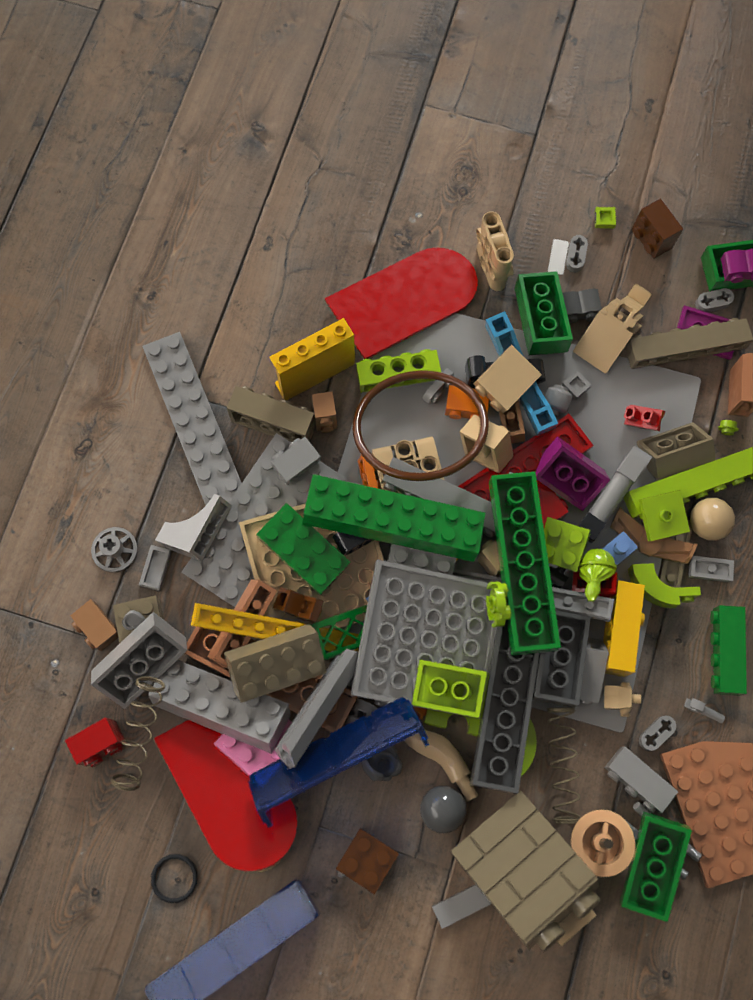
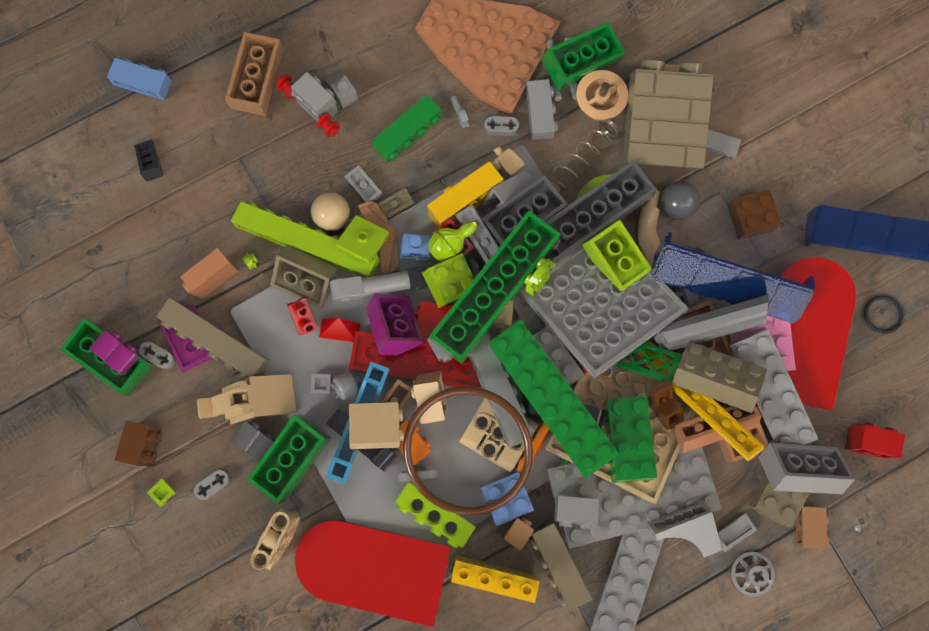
camera: 135 degrees left, 5 degrees up
(132, 620) = (788, 500): light grey piece -> none
(152, 689) = (823, 431): dark tan piece -> none
(342, 432) = (516, 507): none -> medium blue brick
(558, 256) = (226, 496): white sticker -> none
(606, 437) = (338, 329): none -> red slope
(657, 591) = (416, 210): lime arch -> none

